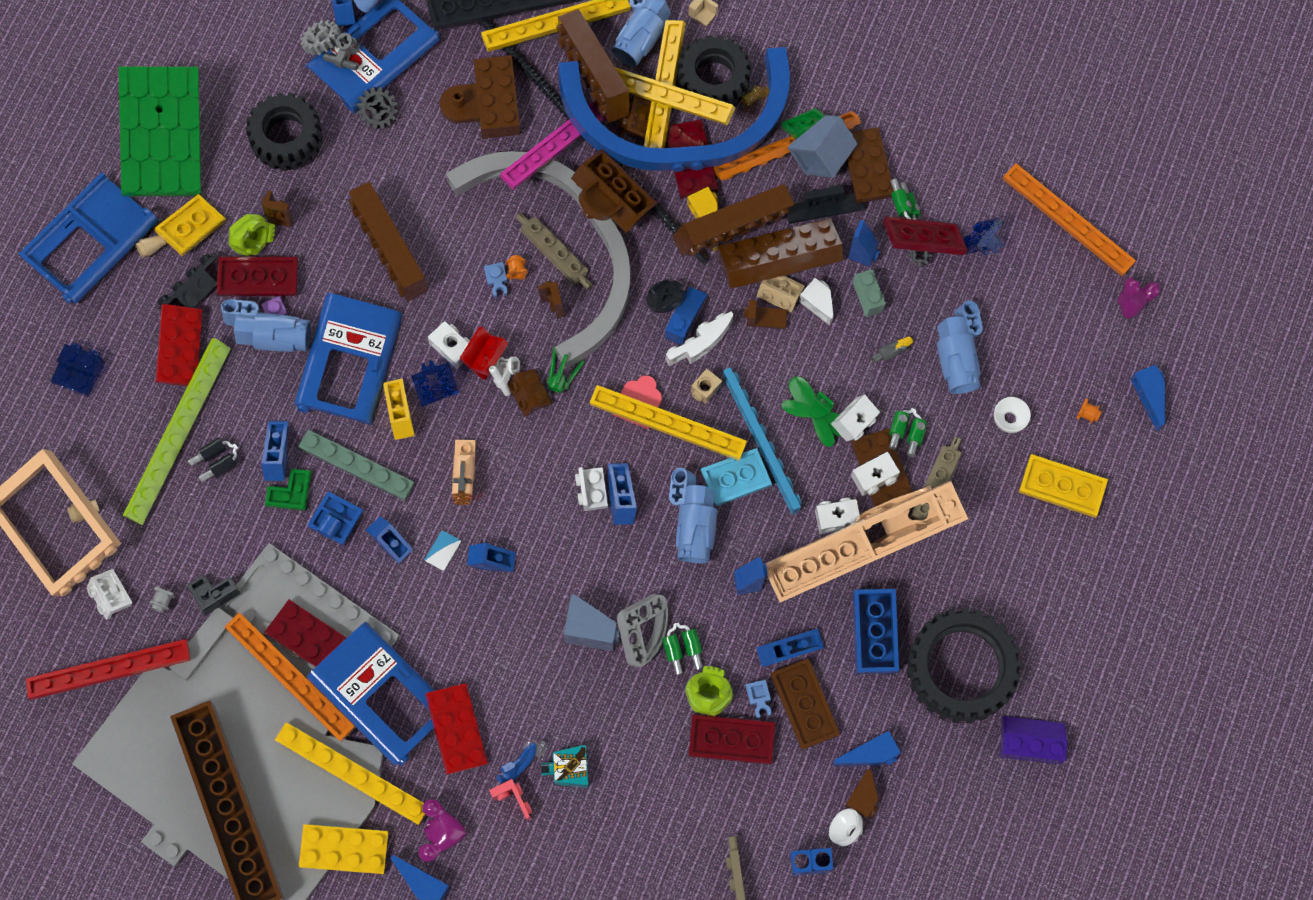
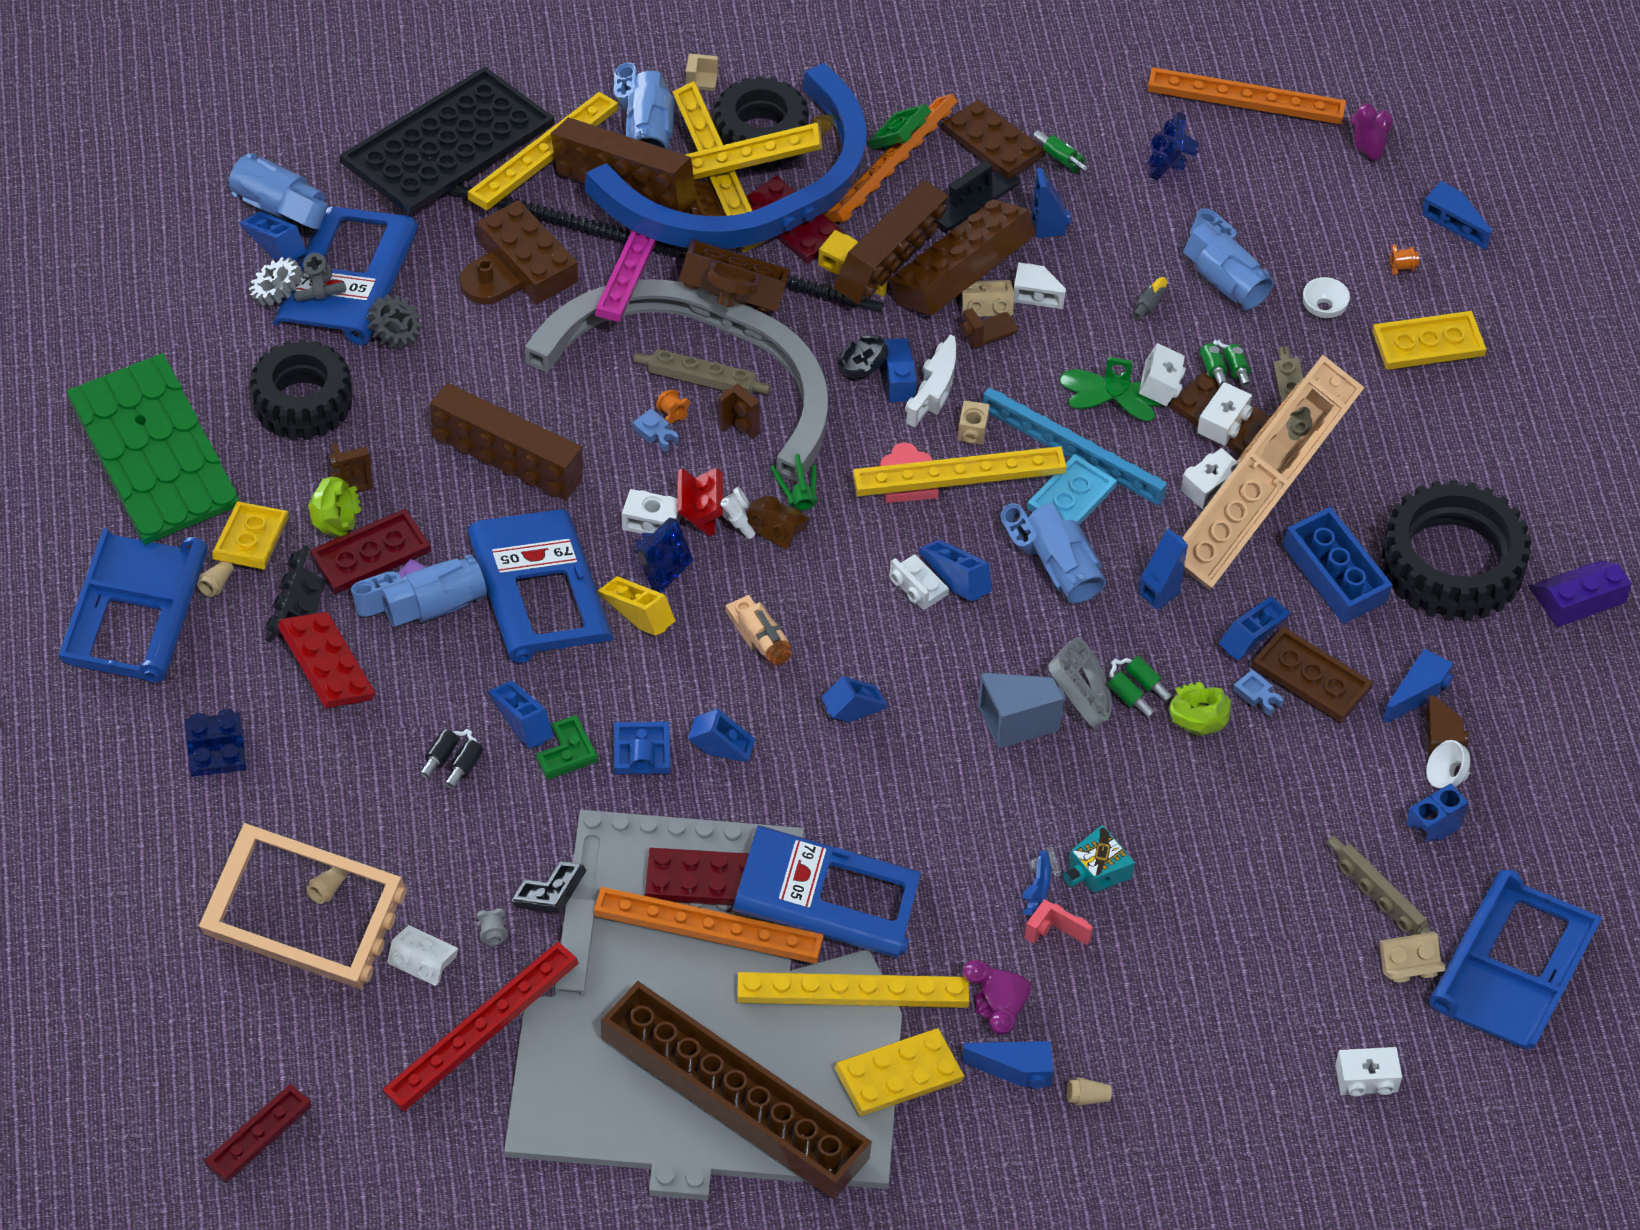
camera: 30 degrees left, 20 degrees down
(176, 432) = (386, 750): lime plate -> none
(356, 465) = (626, 685): sand green plate -> none
(442, 550) = (789, 724): sticker -> none
(456, 729) = (941, 885): red plate -> none
(731, 739) = (1258, 747): dark red plate -> none
(823, 147) = (937, 135): sand blue slope -> none
(869, 293) = (1086, 254): sand green brick -> none
(918, 261) = (1113, 189): dark grey gear -> none
(925, 235) = (1109, 170): dark red plate -> none

